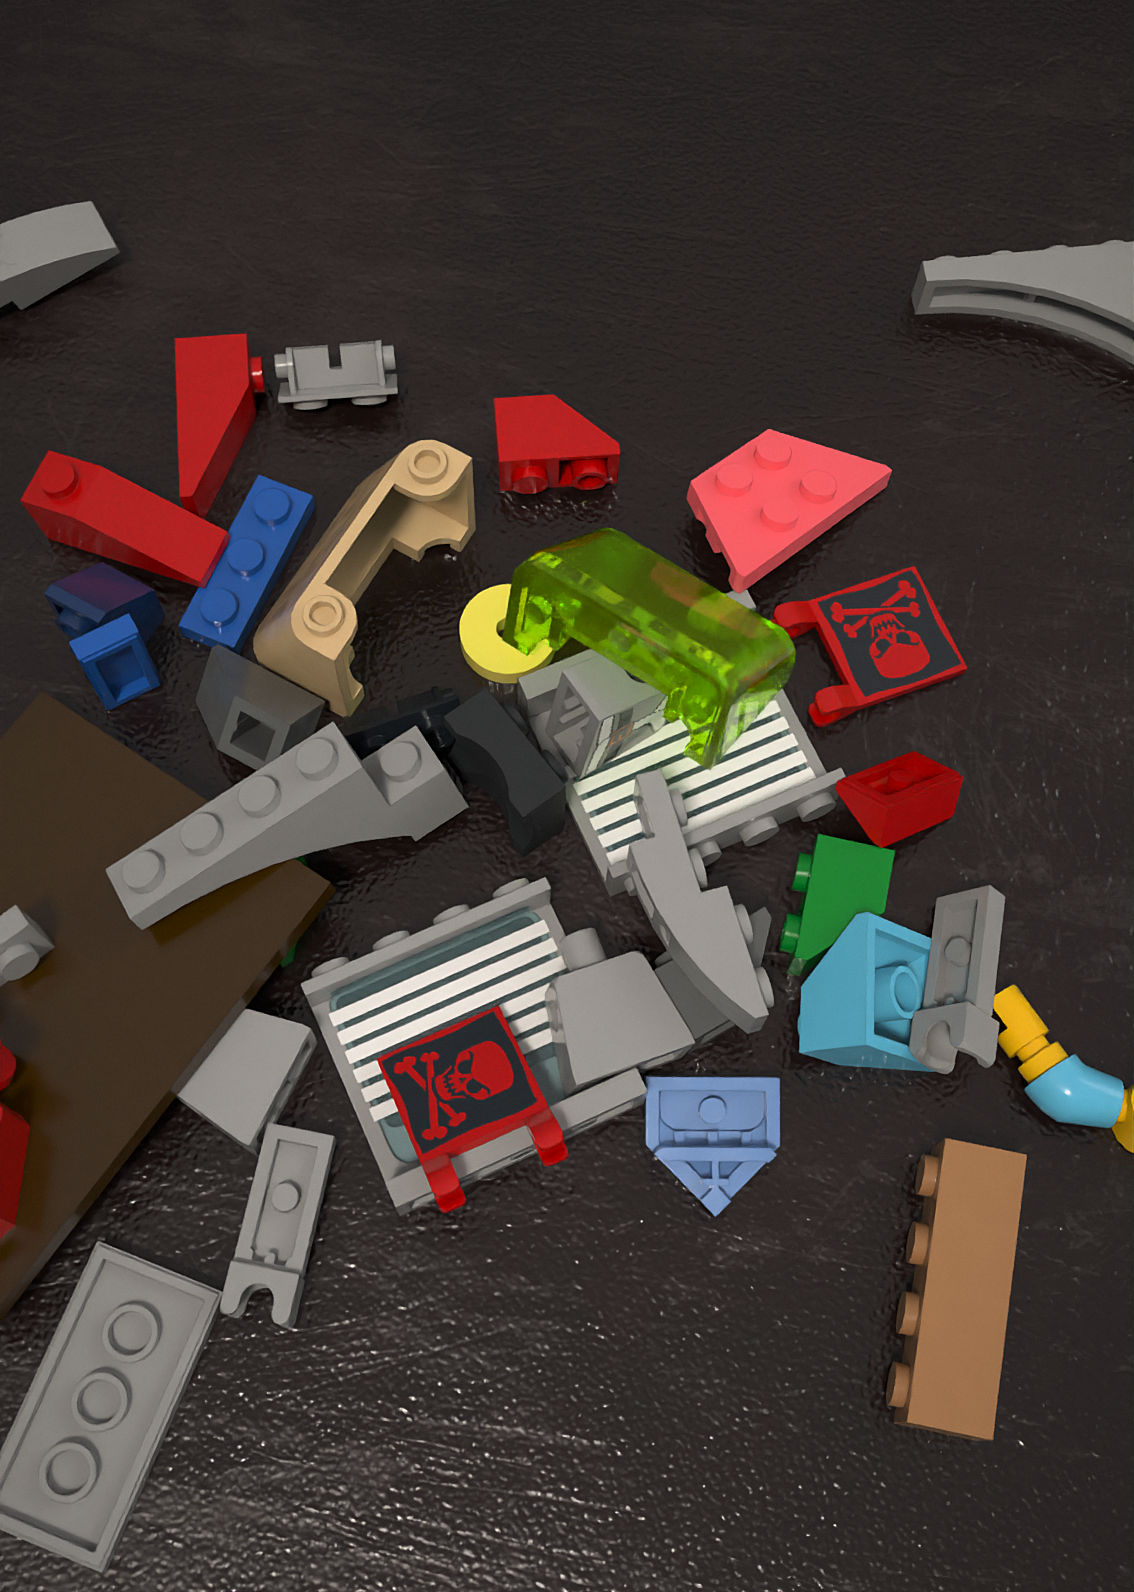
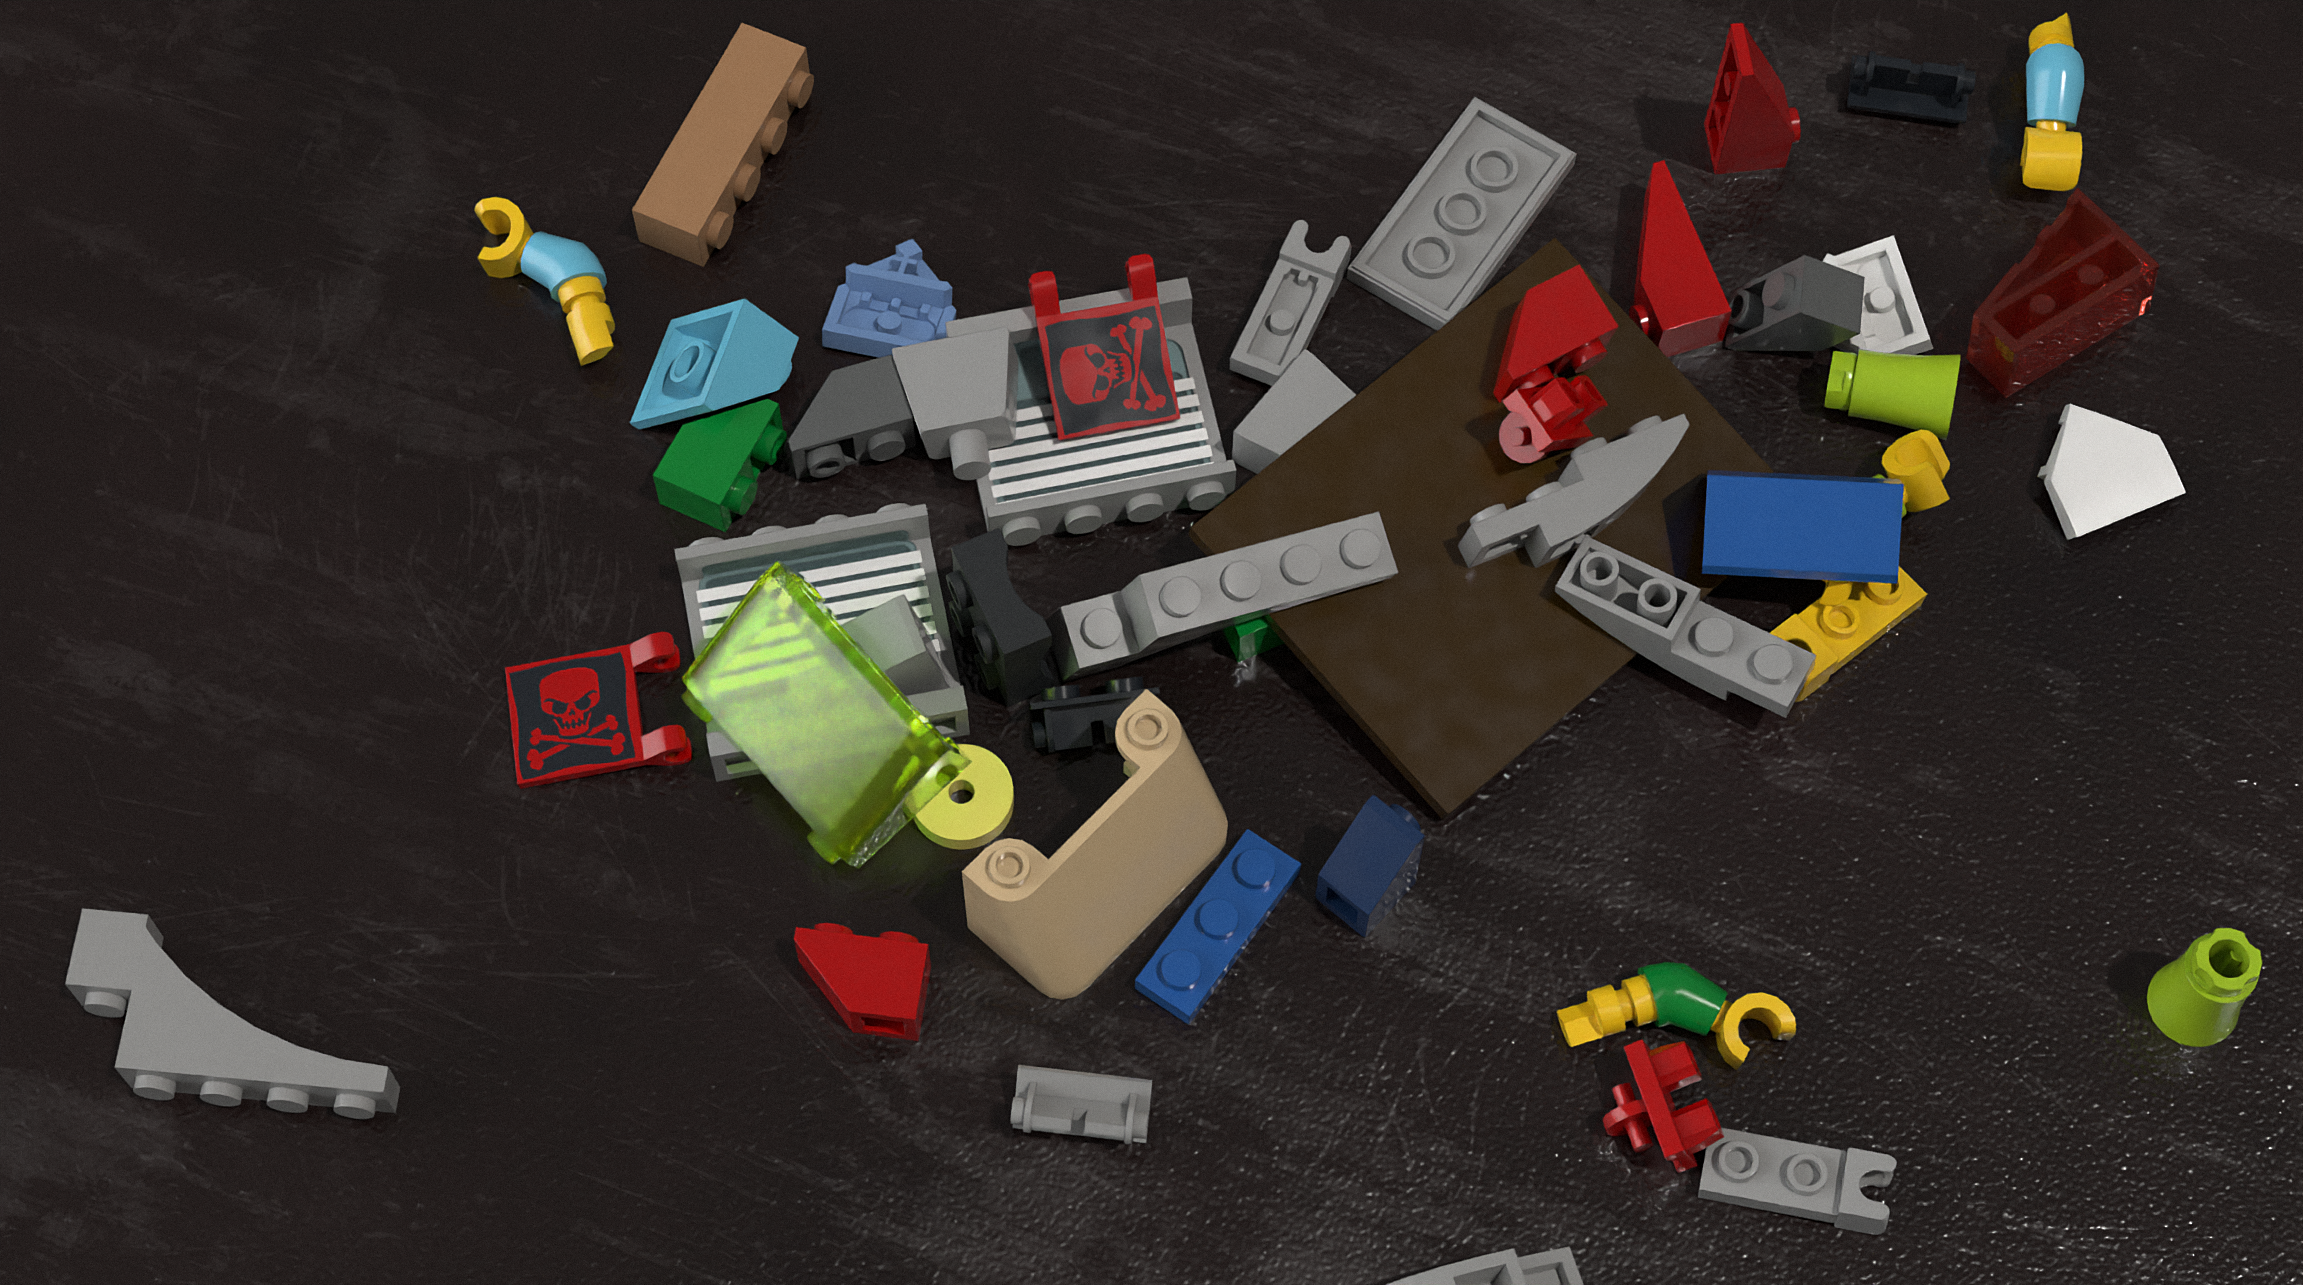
camera: 165 degrees left, 5 degrees down
(116, 662) = (1356, 787): blue tile -> none
(121, 520) = (1340, 973): red slope -> none
(214, 411) = (1222, 1100): red slope -> none
(253, 710) = (1240, 742): dark grey slope -> none
(697, 927) = (865, 439): light grey slope -> none
(777, 500) = (642, 862): coral wing -> none
(901, 796) = (626, 540): red slope -> none
(960, 981) = (630, 367): light grey plate -> none

